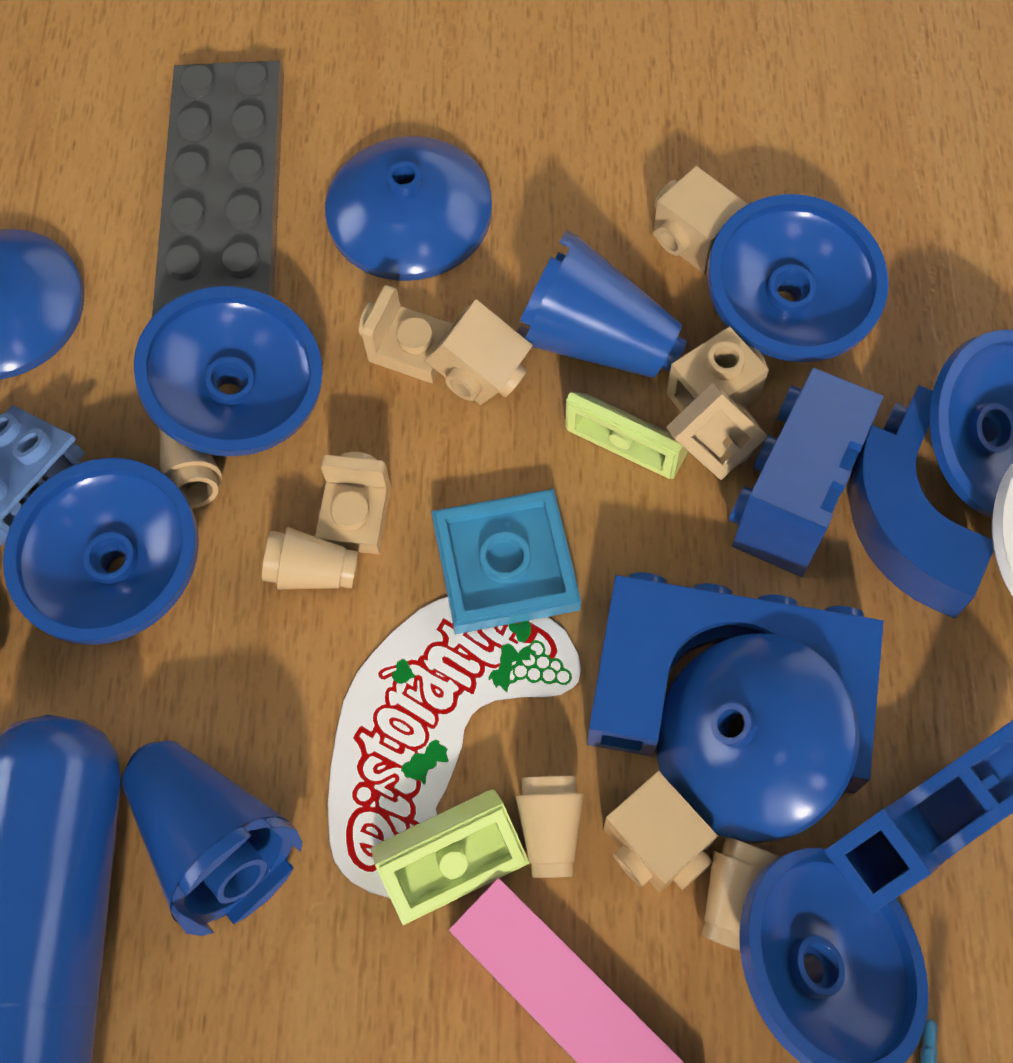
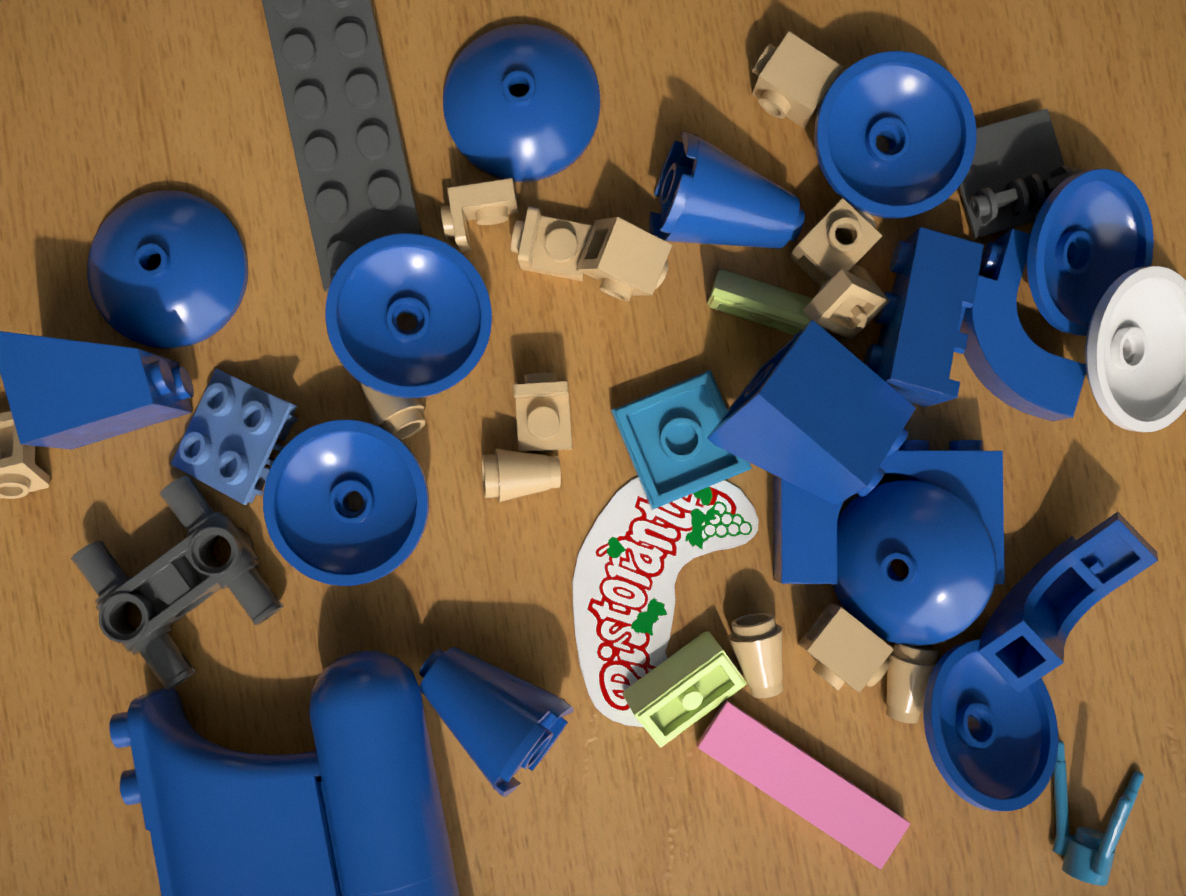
camera: 10 degrees left, 20 degrees up
(334, 281) = (484, 202): none -> tan bracket
(657, 532) = (816, 418): none -> blue slope
(917, 339) = (1012, 173): none -> dark grey hinge

